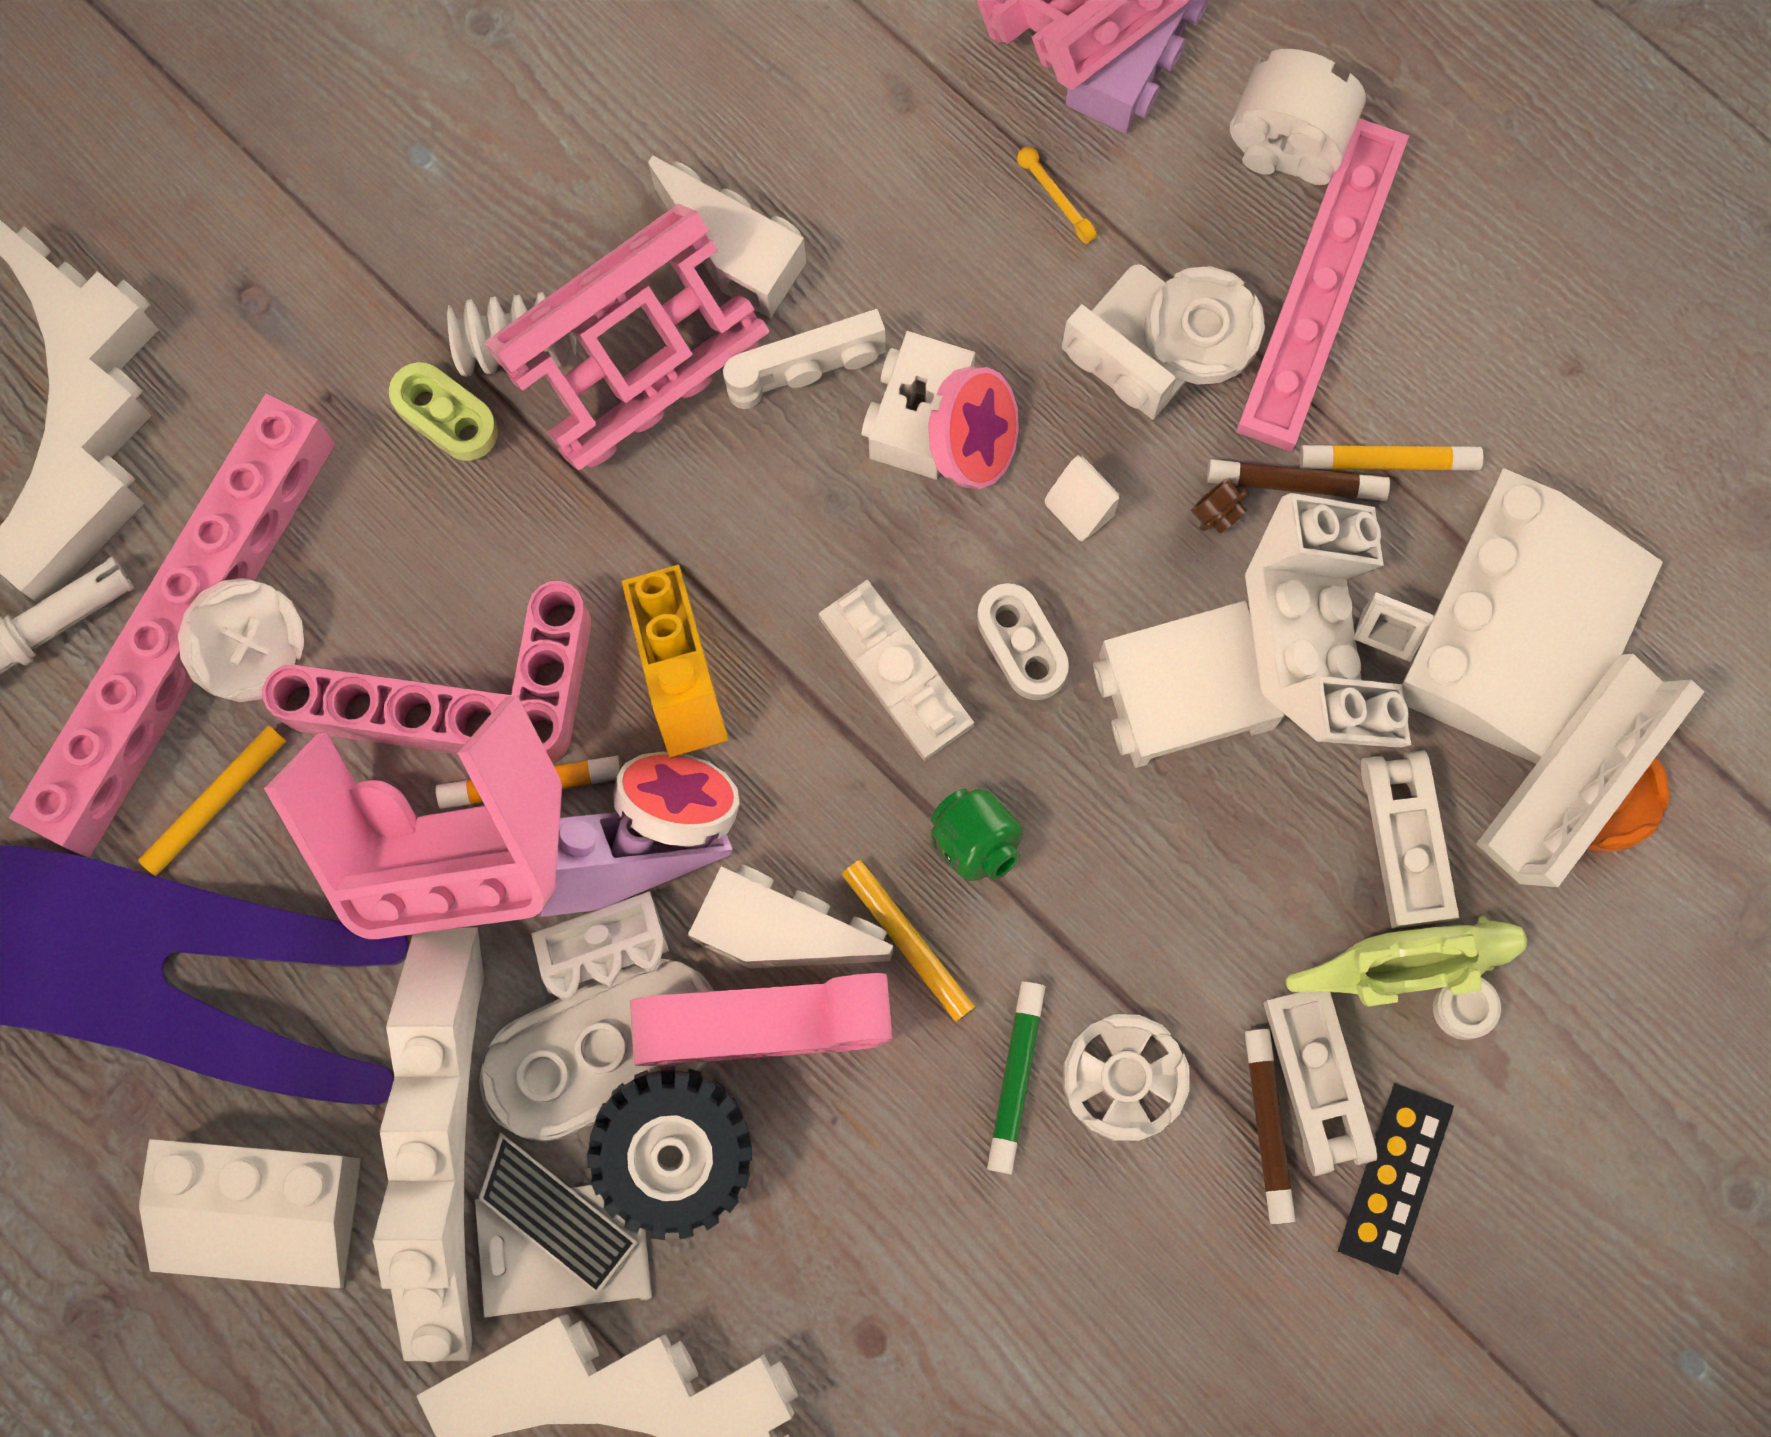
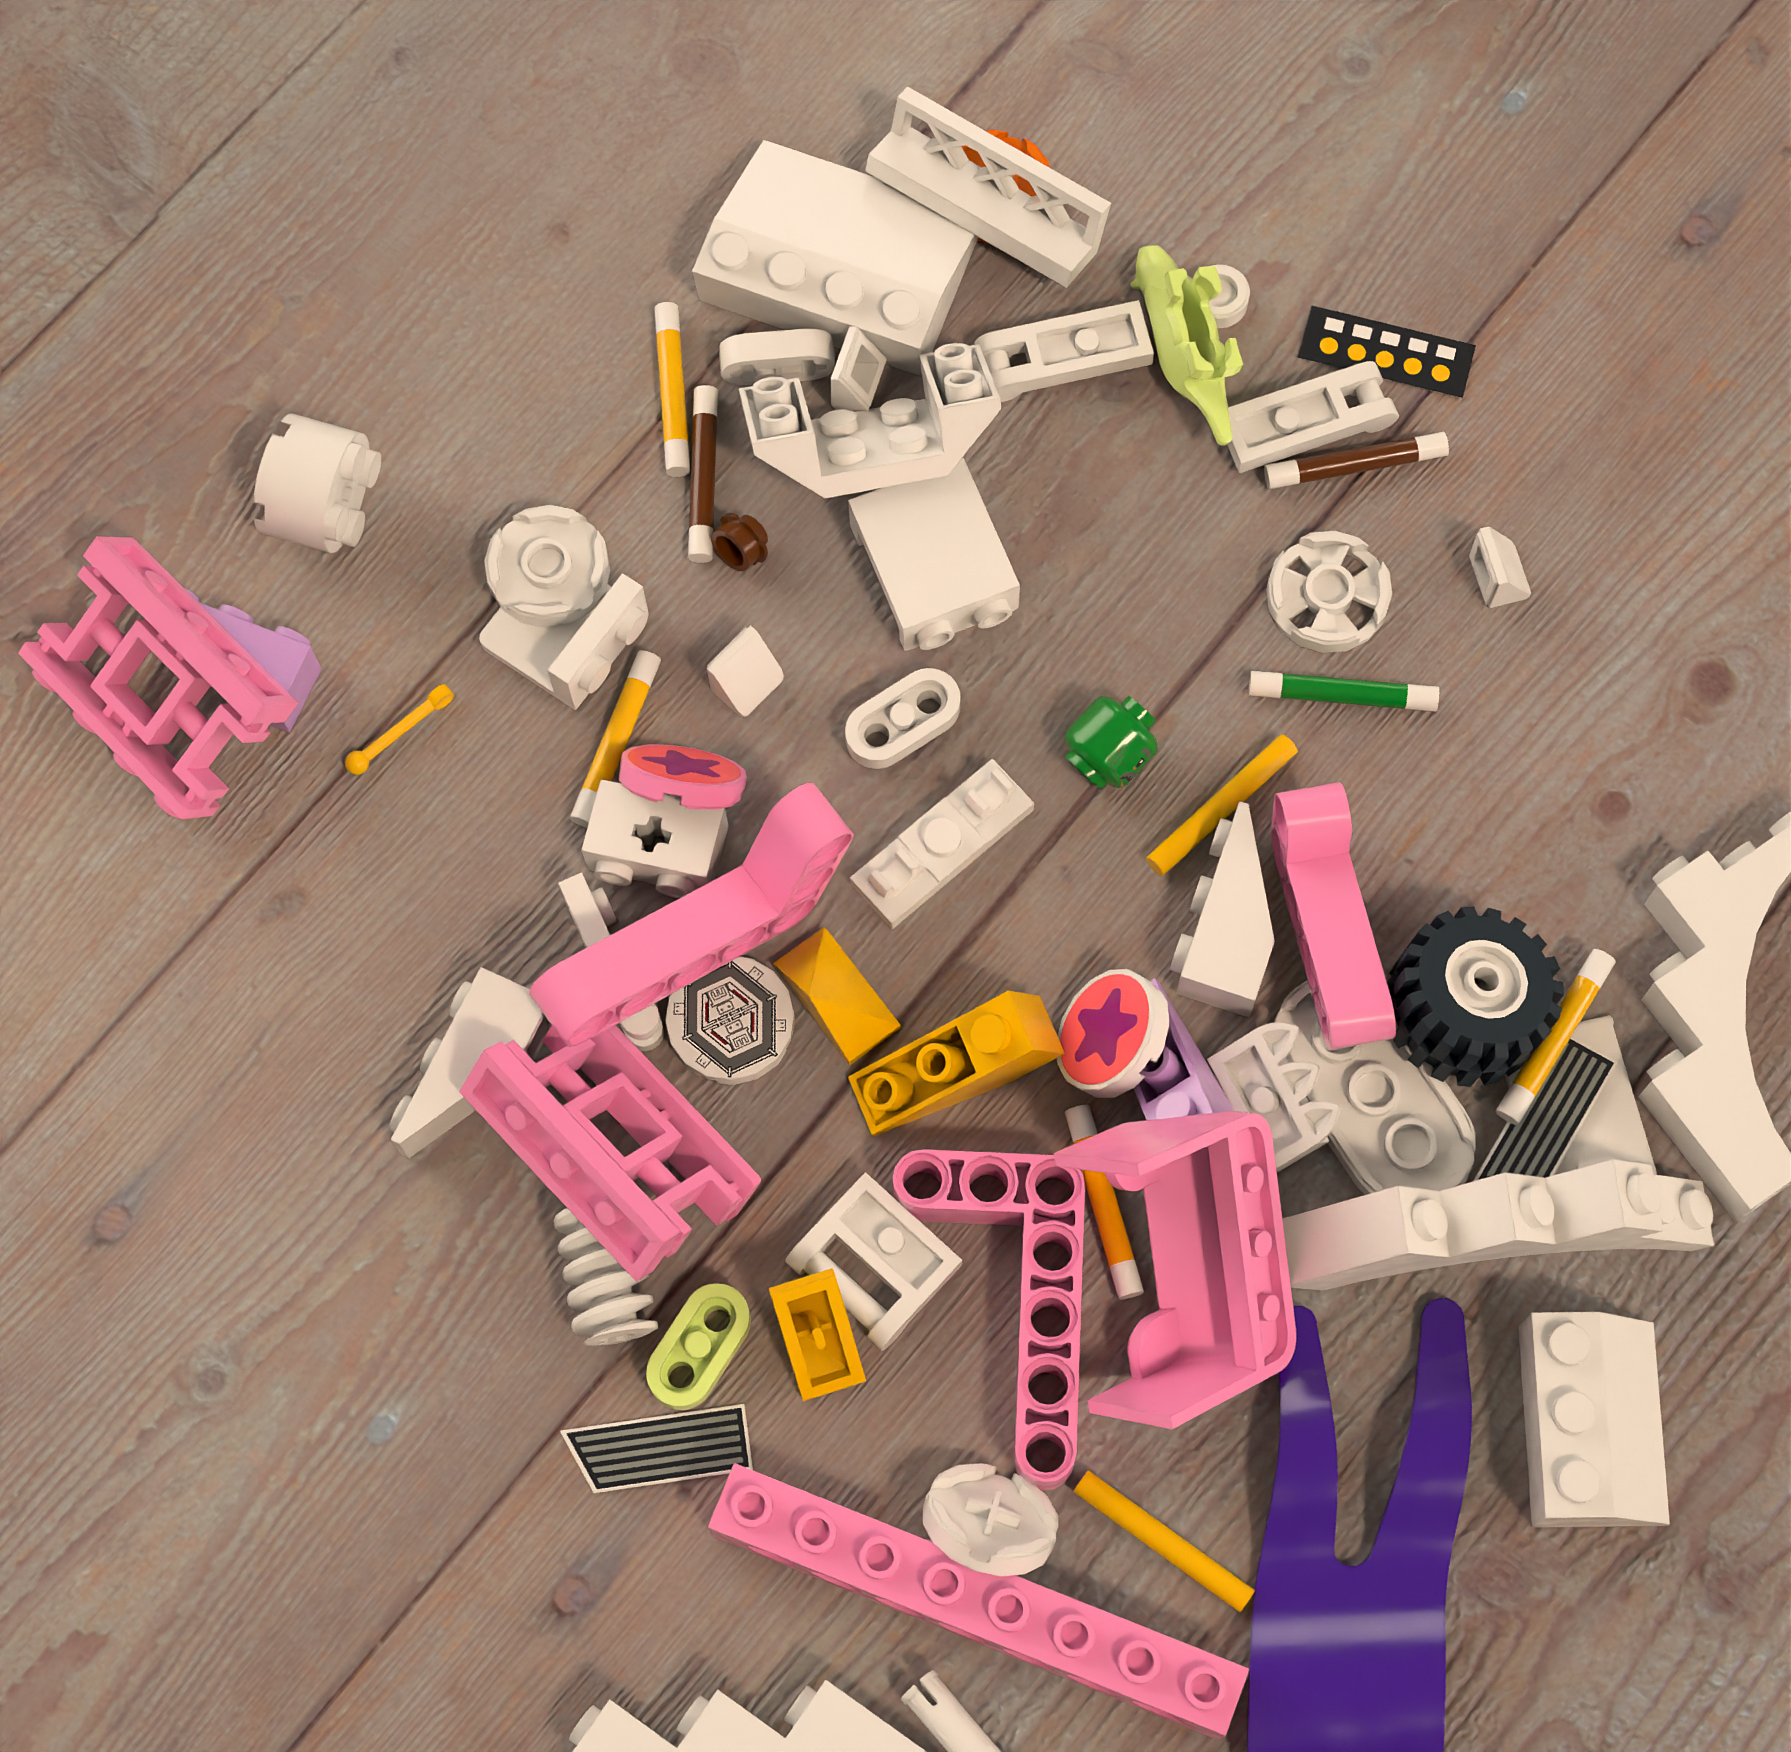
camera: 95 degrees left, 5 degrees down
(363, 380) = (661, 1448): none -> sticker
(433, 505) = (817, 1334): none -> yellow slope
(500, 591) = (890, 1245): none -> white plate
(639, 1245) = (1545, 1056): none -> yellow bar
(743, 463) = (731, 1022): none -> tile
(756, 557) = (837, 995): none -> yellow slope
(856, 500) = (703, 929): none -> bright pink beam
(1042, 386) = (616, 733): none -> yellow bar
(1135, 1260) = (1498, 569): none -> white slope
(1322, 287) = (501, 459): bright pink plate -> none
(1416, 553) = (777, 354): none -> white beam

